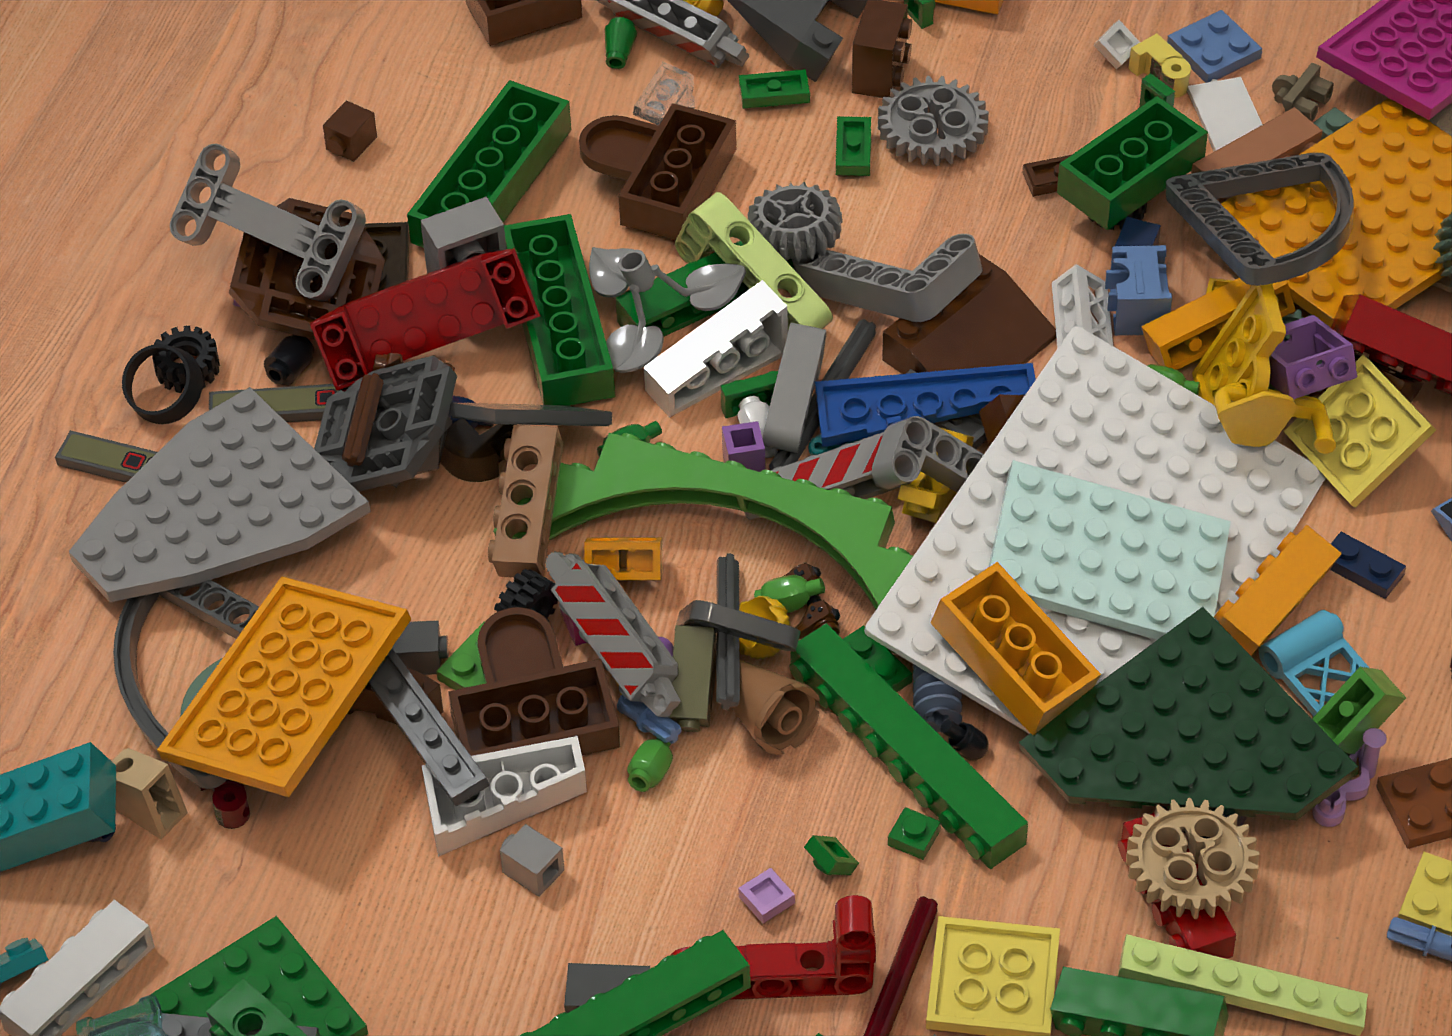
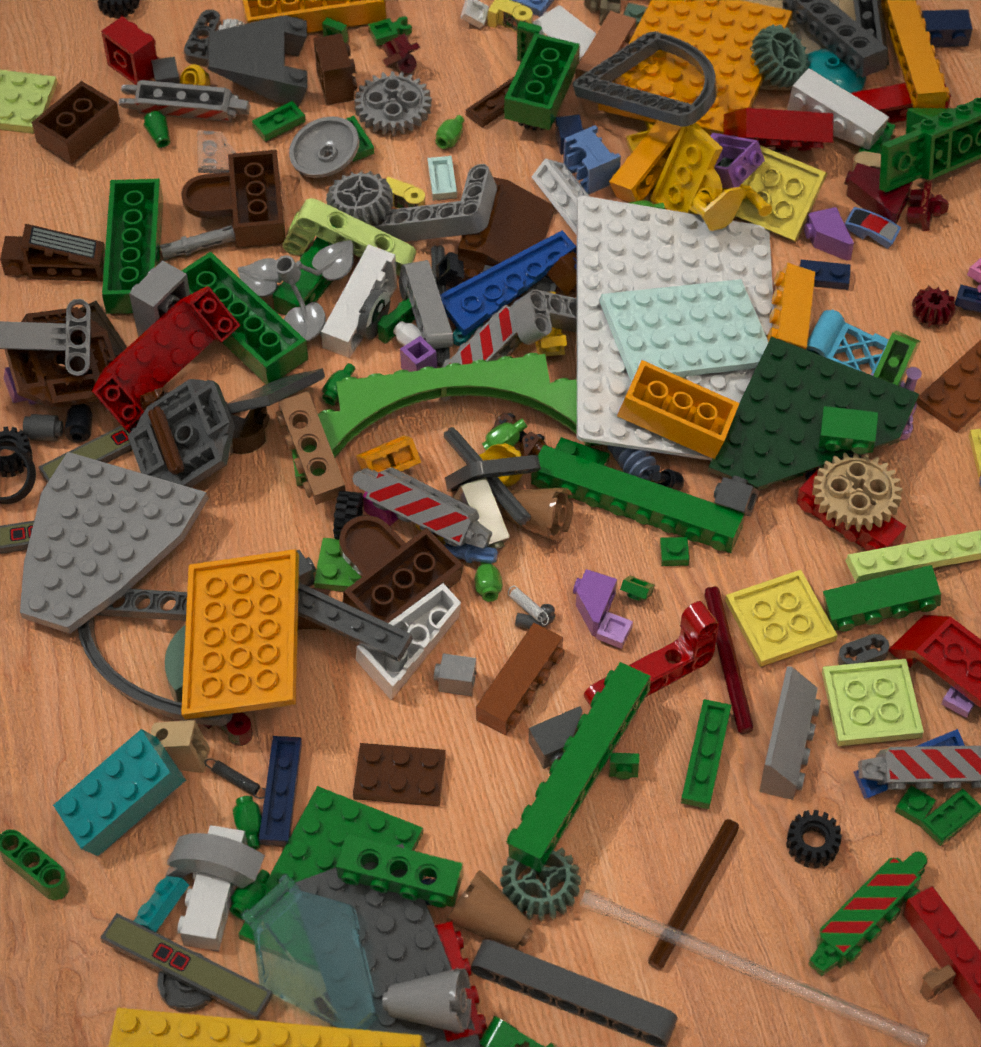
camera: 30 degrees left, 5 degrees up
(89, 938) = (215, 856): none -> light grey arch
(112, 1000) = (249, 895): none -> green plant
(169, 918) = (248, 819): none -> green plant
(190, 862) = (235, 778): none -> dark grey piece
(230, 900) = (280, 791): none -> dark blue plate
(243, 347) = (42, 427): none -> dark grey brick
(385, 949) = (399, 774): none -> reddish brown plate
(392, 146) = (61, 255): none -> reddish brown wedge
(562, 198) = (197, 242): none -> light grey pin
(605, 900) = (519, 679): none -> dark orange brick
(677, 815) = (528, 605): none -> white piece
(679, 842) = (526, 620): none -> dark grey arm
(725, 364) = (377, 306): none -> dark grey tile
(768, 842) = (594, 598): none -> medium lavender slope
(802, 141) = (324, 147): none -> light grey dish
(860, 359) = (451, 271): none -> black piece
(864, 239) = (405, 194): none -> light yellow leg
(935, 230) = (442, 178): none -> light aqua tile
(982, 62) = (399, 51): none -> dark red hips
(982, 185) = (449, 132): none -> bright green plant
(987, 27) = (385, 30): none -> green plate
(1032, 794) = (736, 495): none -> dark grey brick
(1222, 770) = (848, 430): none -> green brick
(1402, 511) = (829, 233): none -> medium lavender slope

